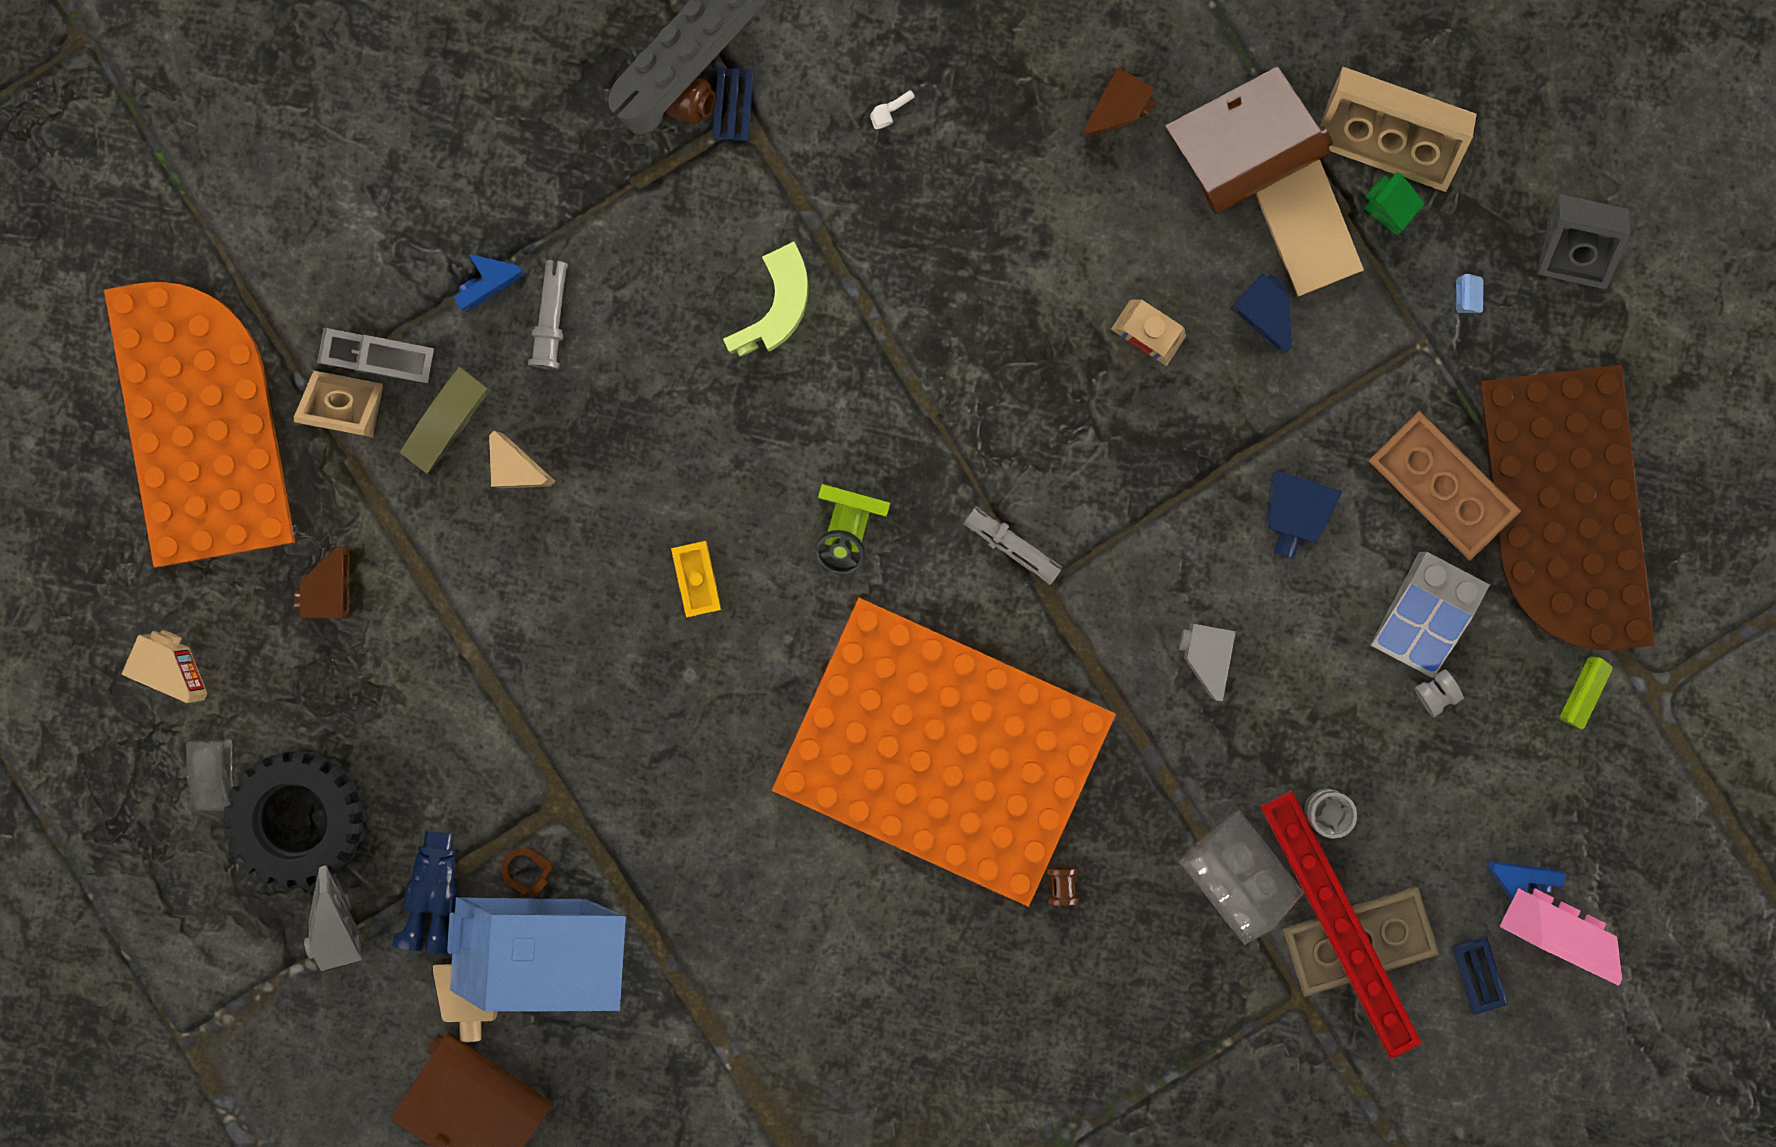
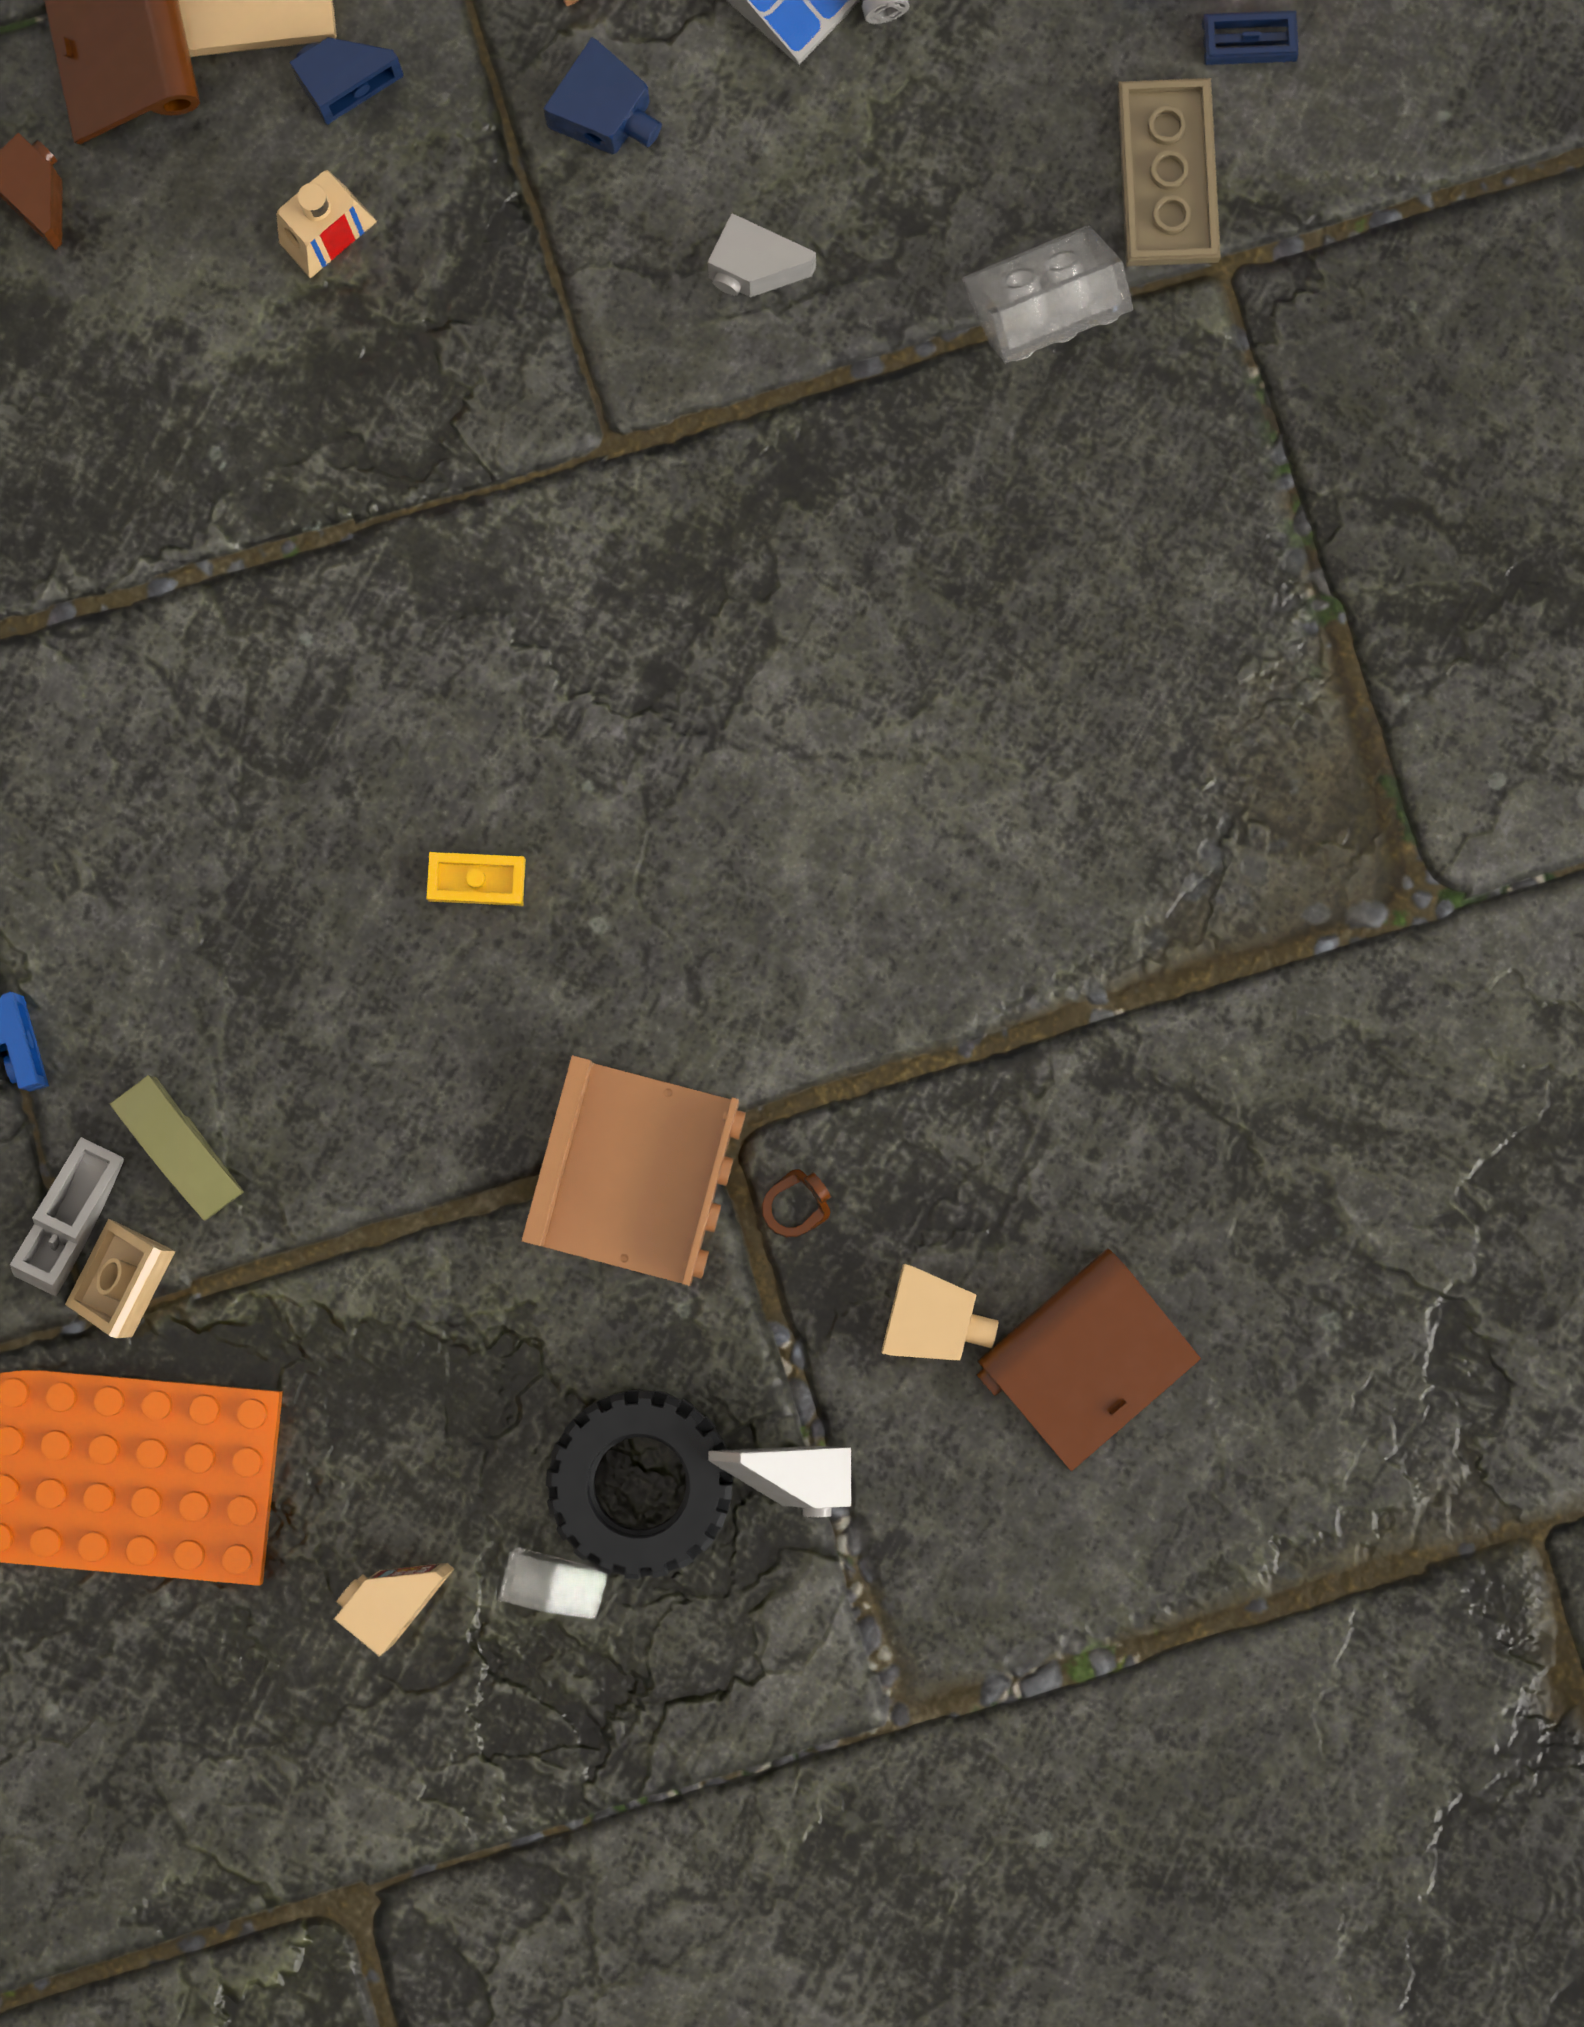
camera: 70 degrees left, 5 degrees down
(326, 588) = (351, 1363): reddish brown slope -> none
(431, 891) = (785, 1331): dark blue piece -> none
(513, 467) = (262, 1066): tan slope -> none
(517, 751) = (633, 1172): none -> medium nougat panel
(536, 954) = (900, 1198): medium blue piece -> none
(547, 332) = (104, 983): light grey pin -> none
(788, 306) = (130, 655): yellowish green arch -> none
(847, 527) = (460, 667): lime piece -> none
(943, 752) = (786, 626): orange plate -> none
(1018, 549) = (531, 479): light grey pin -> none
(1063, 885) = (998, 519): reddish brown bush -> none
(1330, 813) = (995, 160): light grey wheel -> none
(1340, 924) = (1140, 185): red tile -> none

